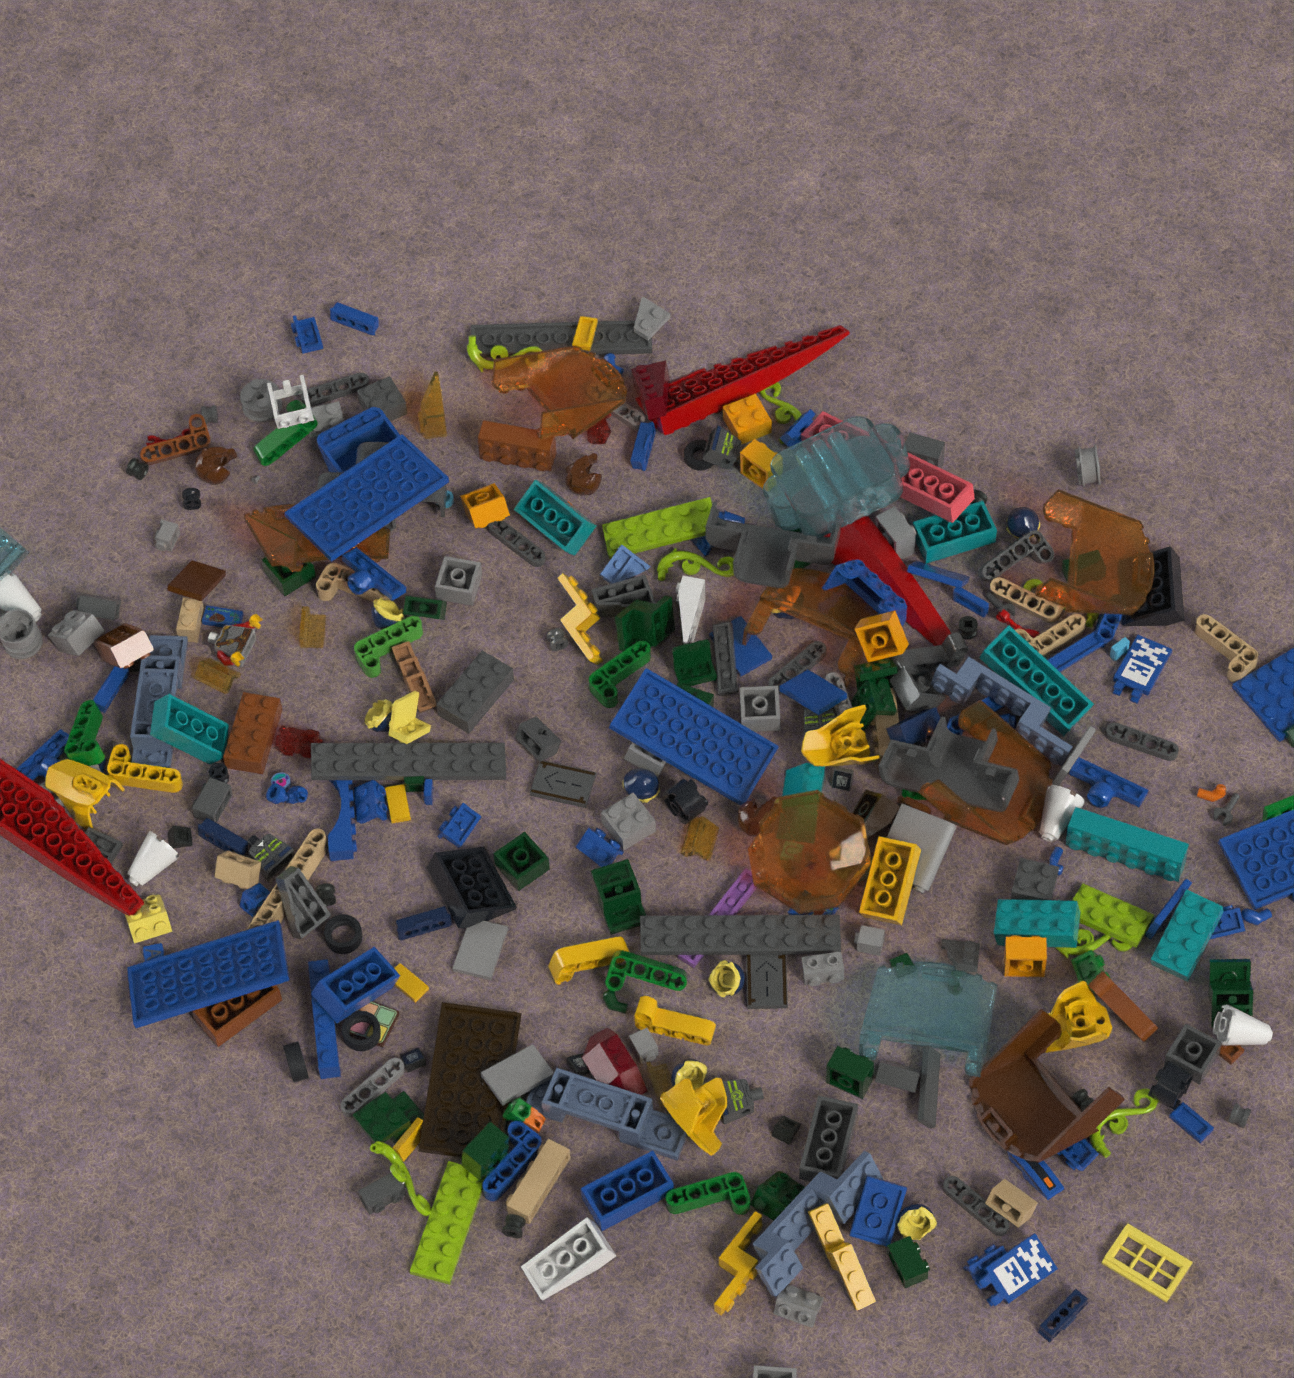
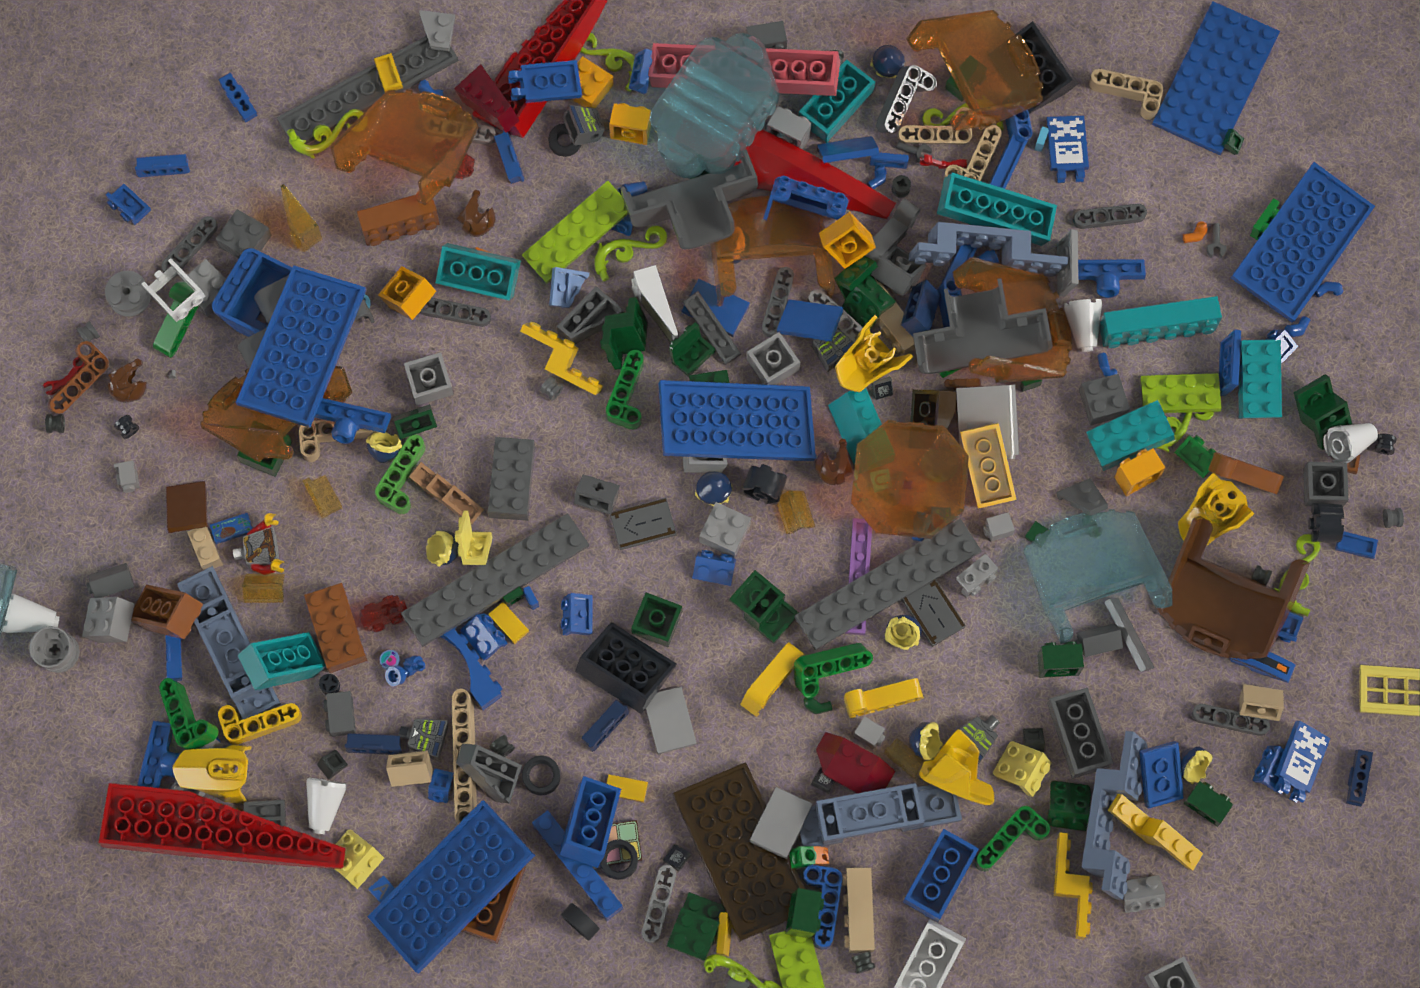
camera: 35 degrees left, 15 degrees up
(450, 296) = (238, 92): none -> blue piece
(709, 396) = (546, 82): none -> blue tile
(761, 1146) = (1022, 767): none -> light yellow bracket
(956, 610) = (879, 176): none -> blue arm
(977, 840) = (1030, 384): none -> dark green tile
(1273, 1051) = (1385, 444): none -> black wheel

